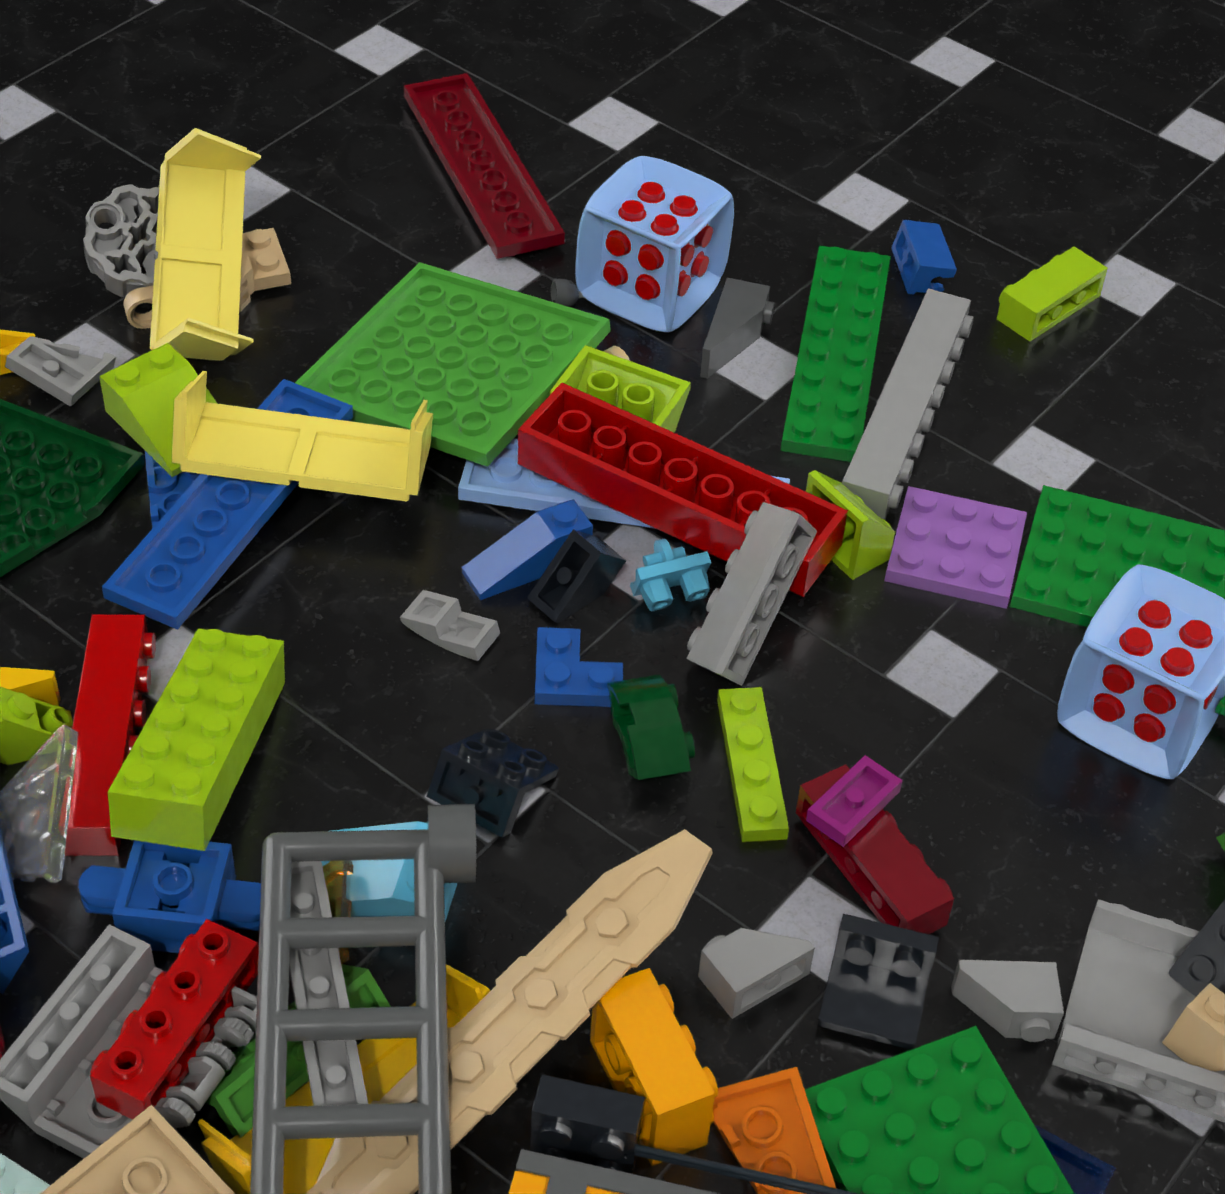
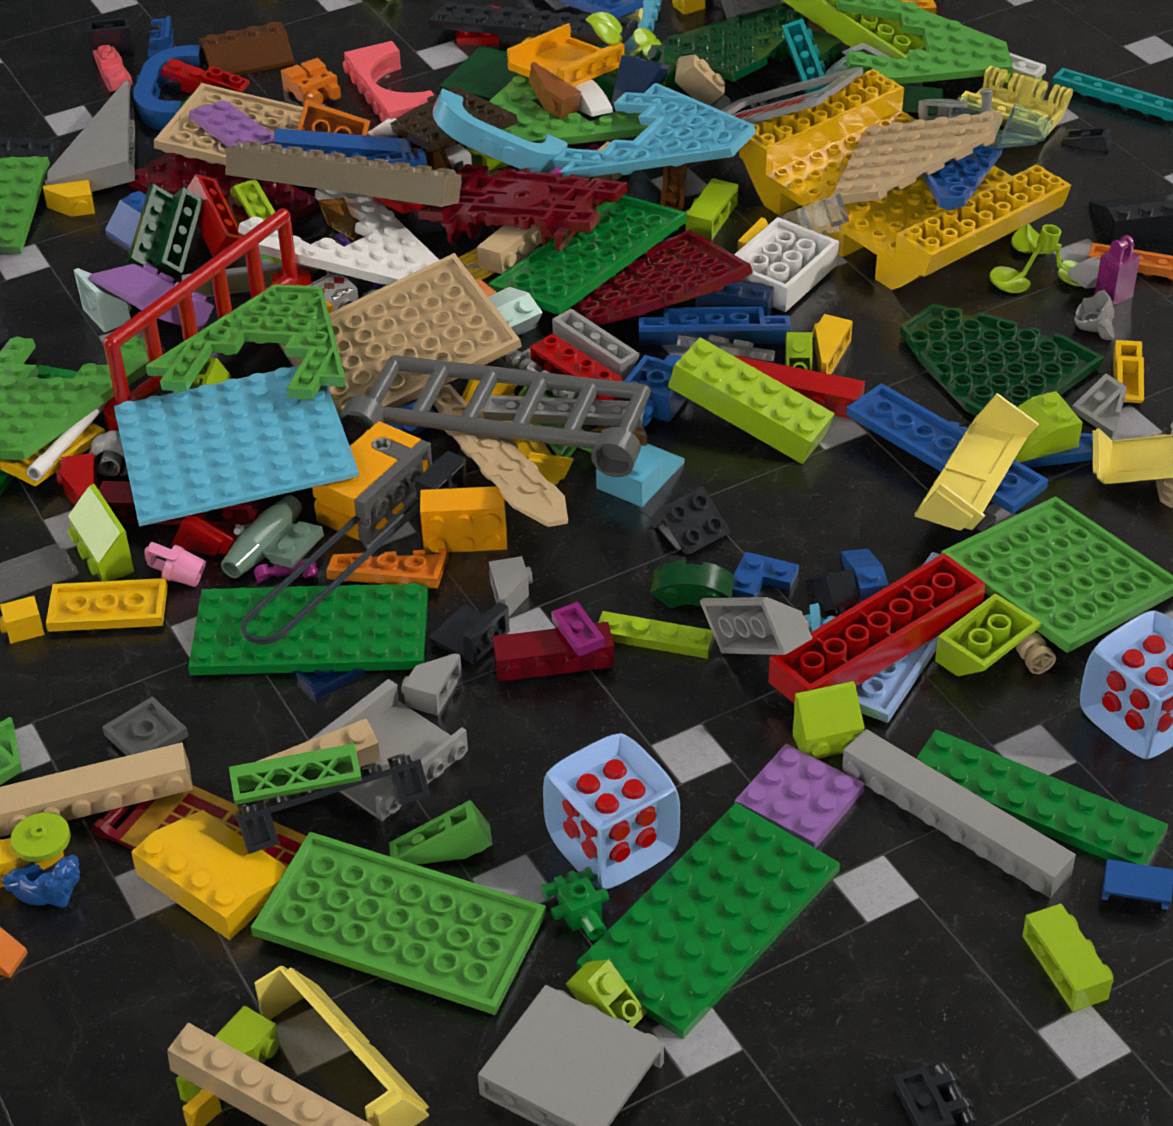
camera: 115 degrees right, 5 degrees down
(444, 624) = (821, 531): light grey slope -> none
(736, 323) = (1072, 737): dark grey slope -> none

